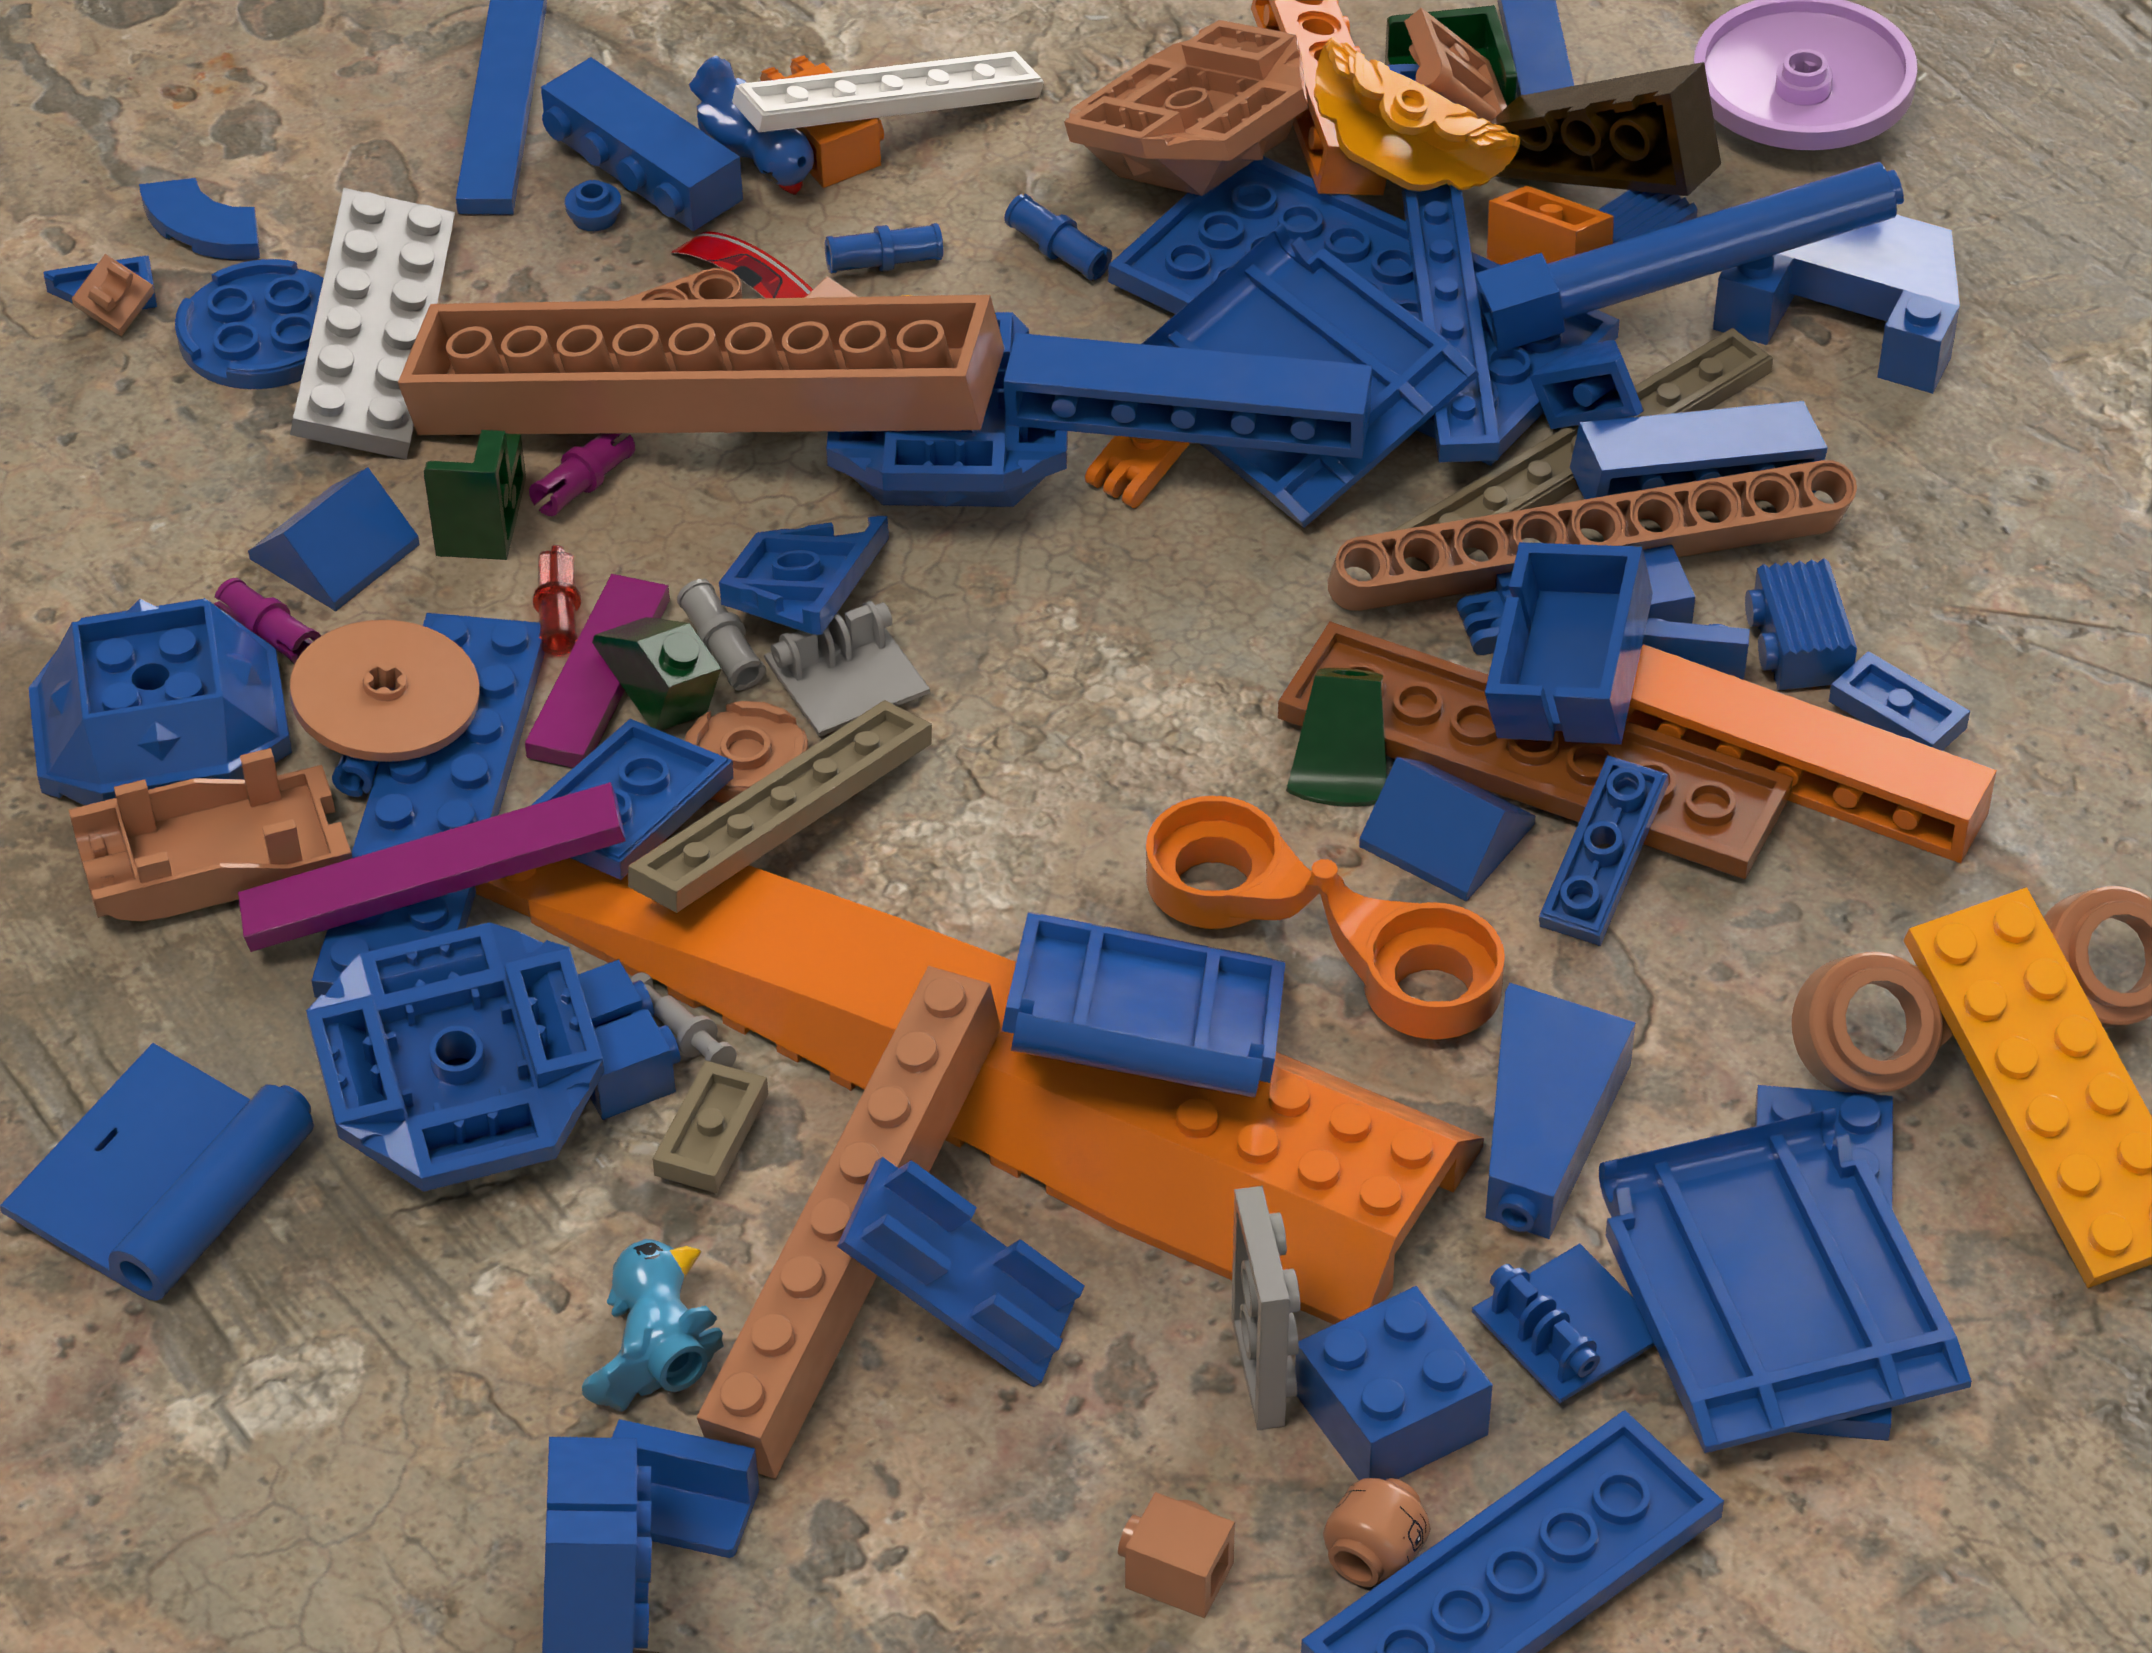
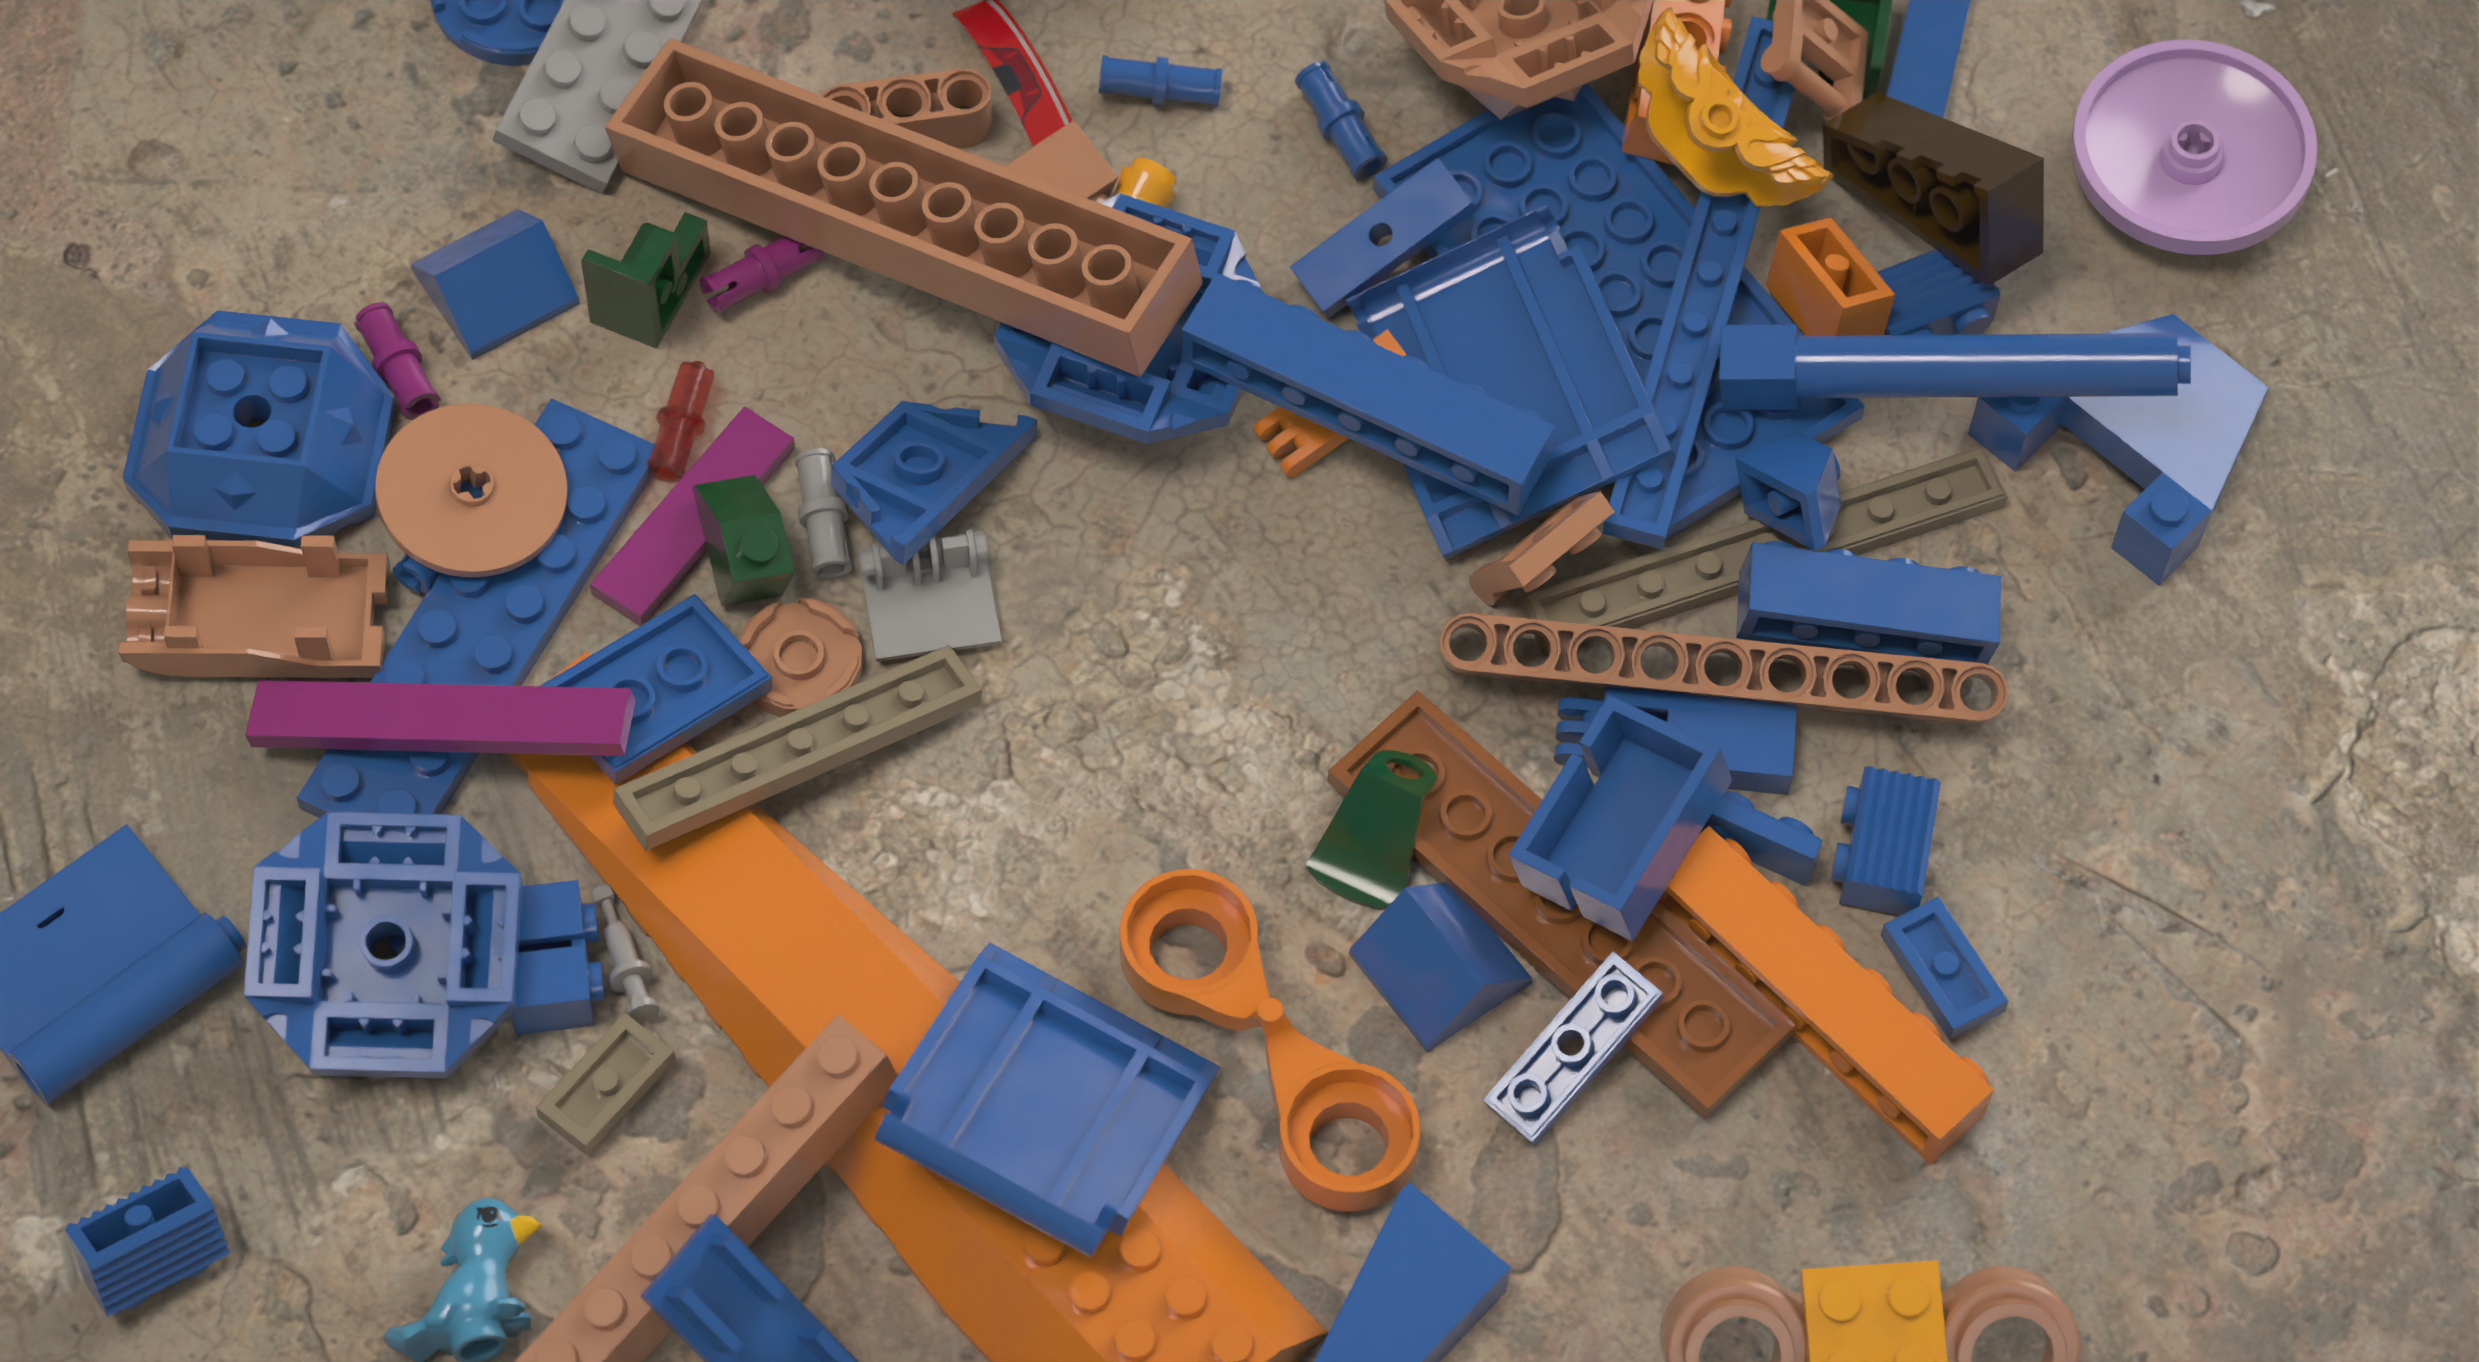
camera: 15 degrees right, 15 degrees up
(315, 1370) = (147, 1241): none -> blue brick
(1149, 287) = (1411, 214): none -> blue tile
(1391, 489) = (1530, 561): none -> nougat plate

